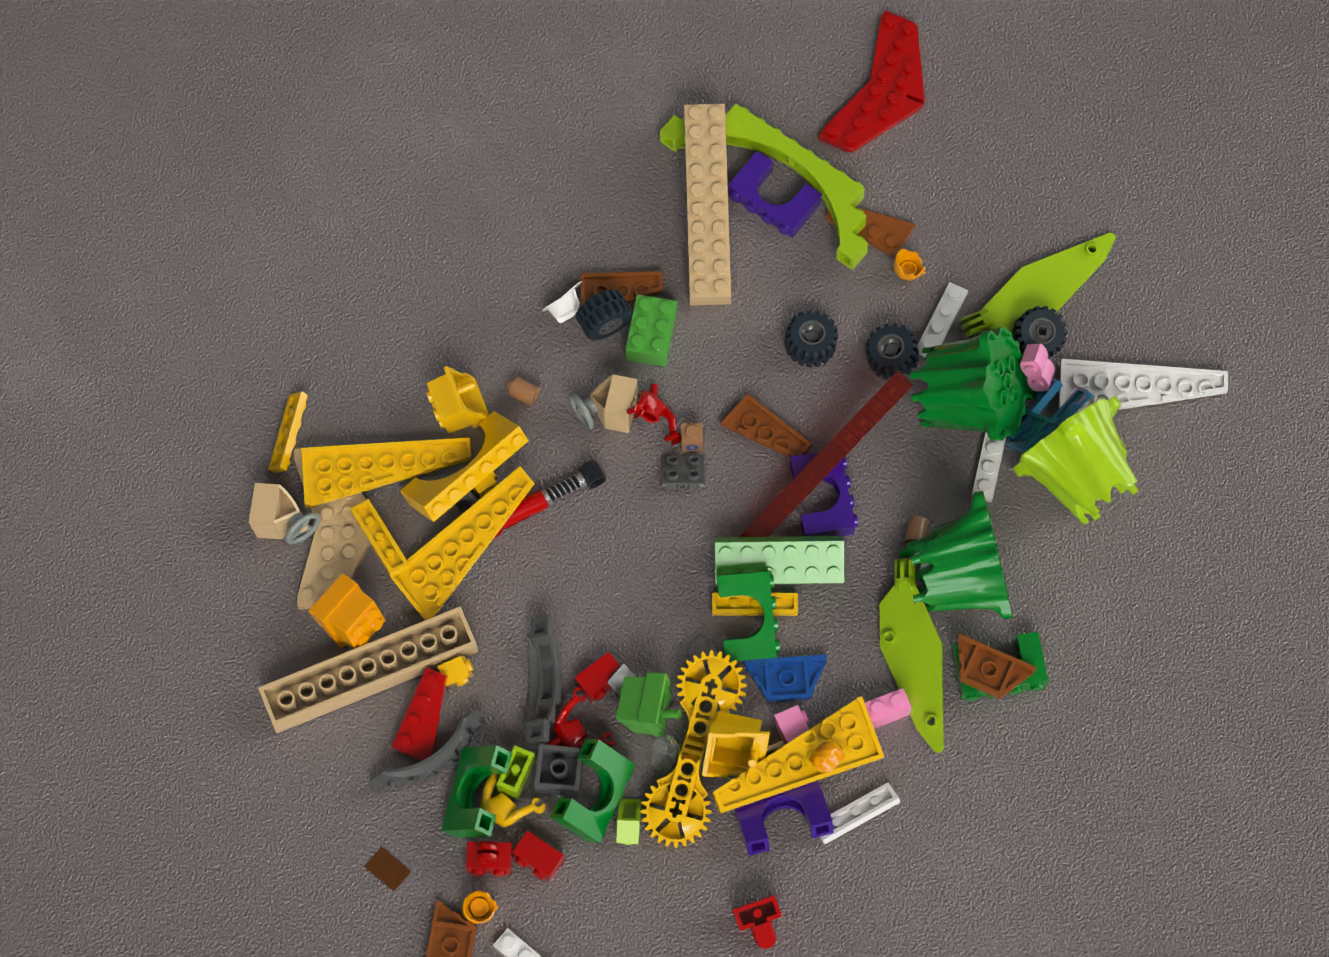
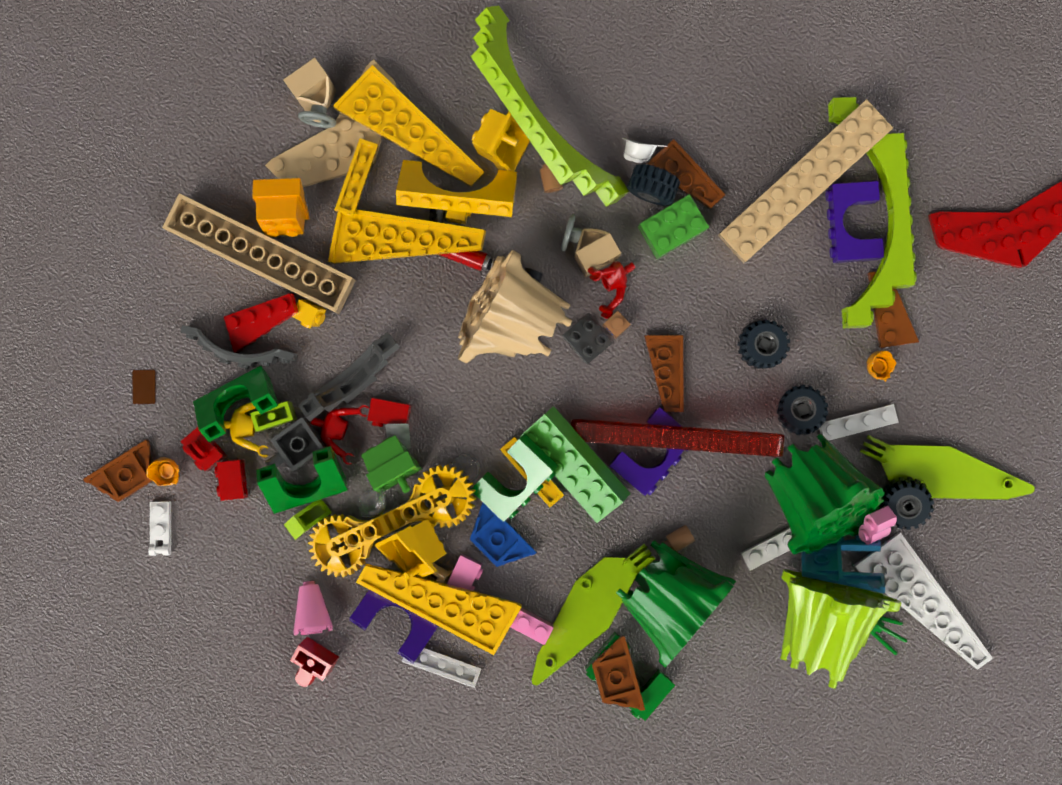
camera: 50 degrees right, 20 degrees up
(287, 432) = (380, 44): yellow plate -> none
(517, 359) = (561, 158): none -> lime arch
(605, 498) = (510, 313): none -> tan piece
(714, 882) = (311, 611): none -> bright pink cone
(827, 756) = (454, 621): light orange hair -> none
(1125, 435) = (880, 627): none -> green plant

